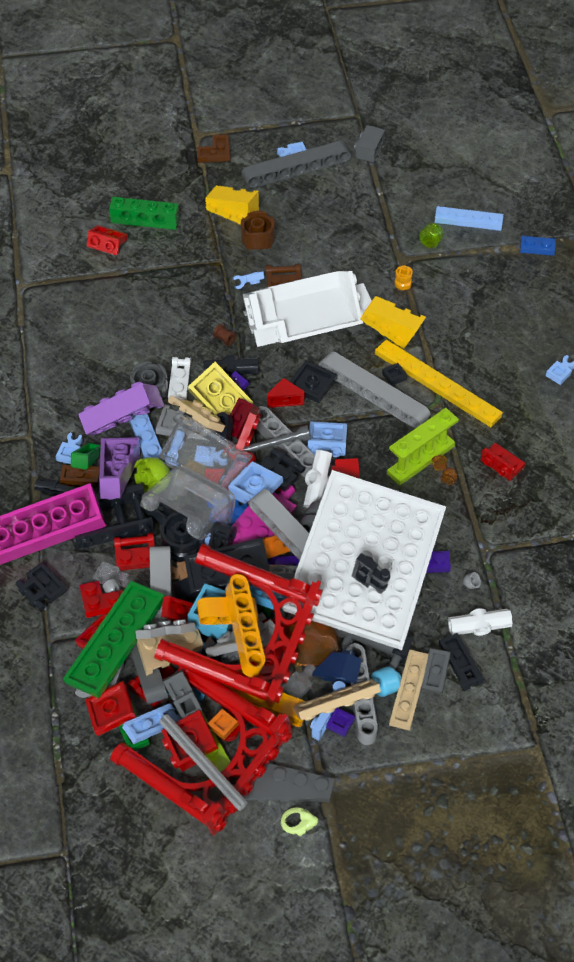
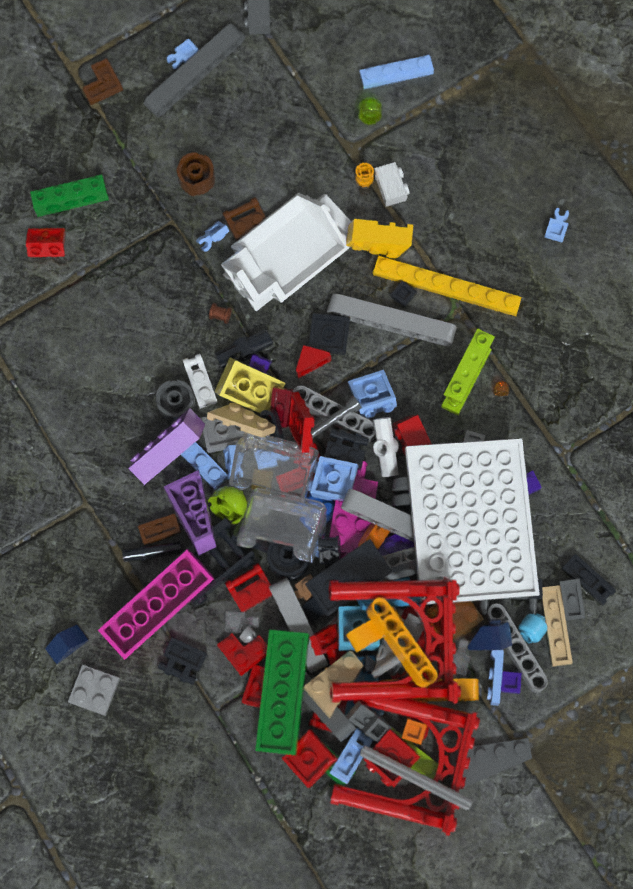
camera: 20 degrees left, 20 degrees up
(65, 450) = (135, 507): light blue plate -> none
(85, 456) = (155, 507): green slope -> none
(165, 628) = (324, 665): light grey plate -> none
(232, 203) = (154, 151): yellow wedge -> none
(308, 821) = (523, 788): yellowish green piece -> none
(339, 698) = (503, 669): tan plate -> none
(366, 573) = (486, 543): black plate -> none
(423, 291) = (391, 184): none -> white brick
(439, 463) = (489, 376): clear orange hinge -> none
(472, 580) = (565, 493): light grey hinge -> none
(480, 622) = (589, 533): white piece -> none
(502, 461) = (542, 352): red bracket -> none
(537, 245) = (477, 80): blue plate -> none

